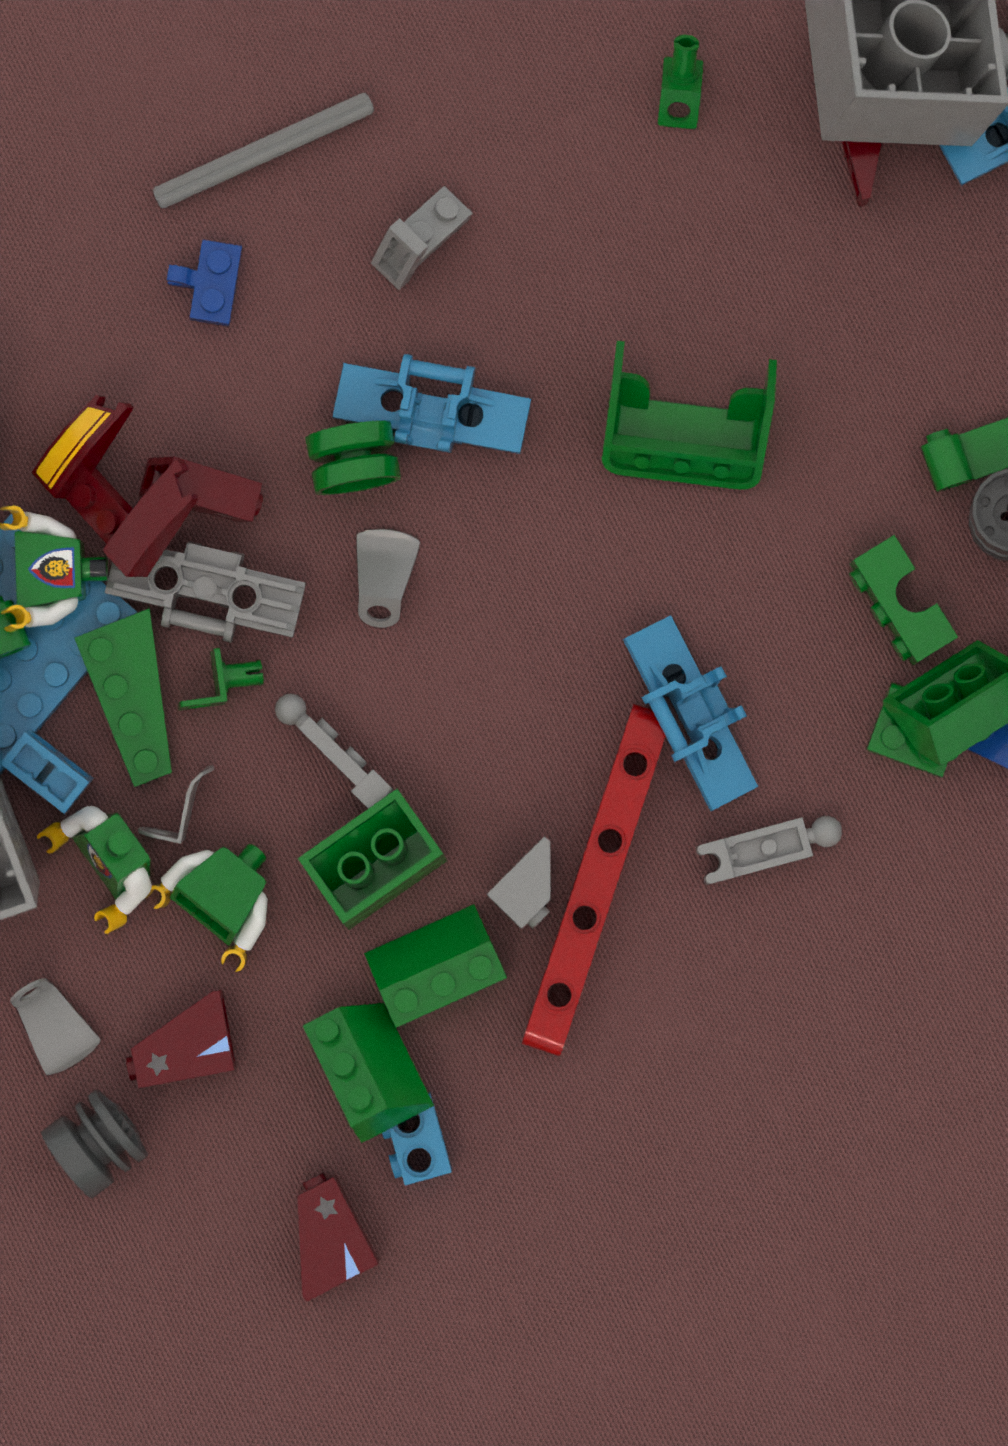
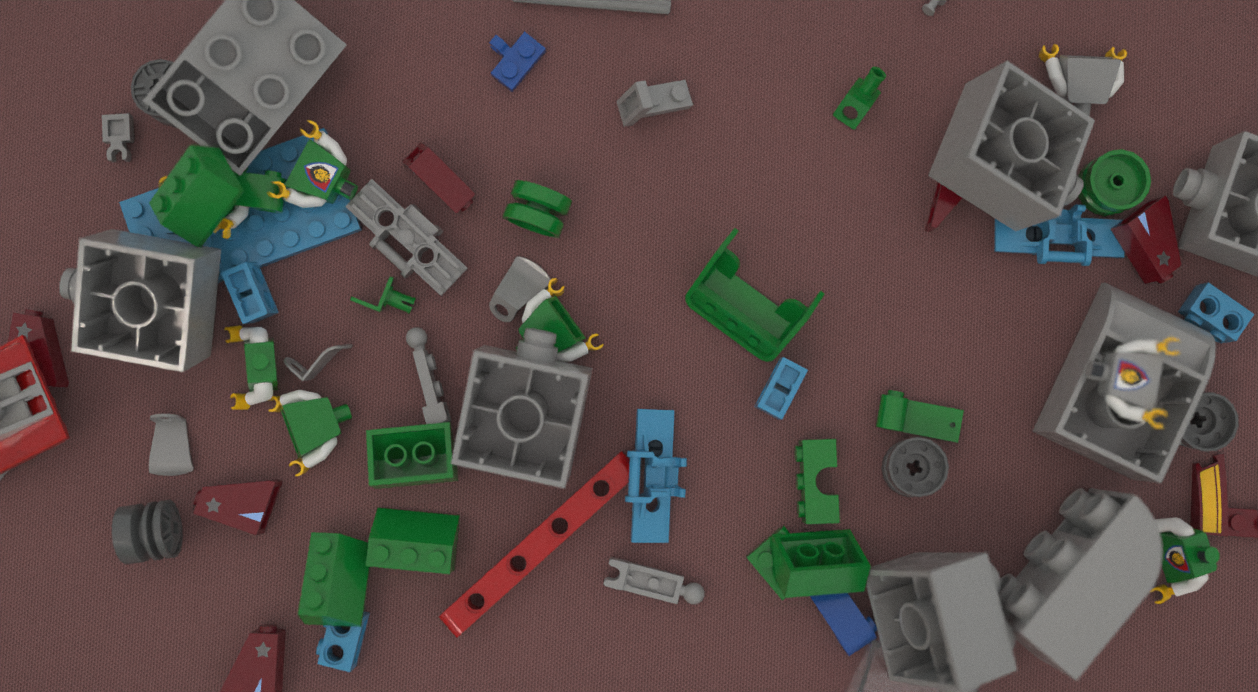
camera: 35 degrees right, 0 degrees up
(69, 472) = (382, 179): dark red wedge -> none
(127, 683) = (327, 271): green wing -> none
(430, 421) = (597, 214): dark azure piece -> none
(457, 601) = (550, 315): none -> green torso
(486, 717) = (522, 411): none -> light grey brick
(526, 887) = (491, 527): light grey slope -> none
(789, 510) = (781, 388): none -> dark azure brick

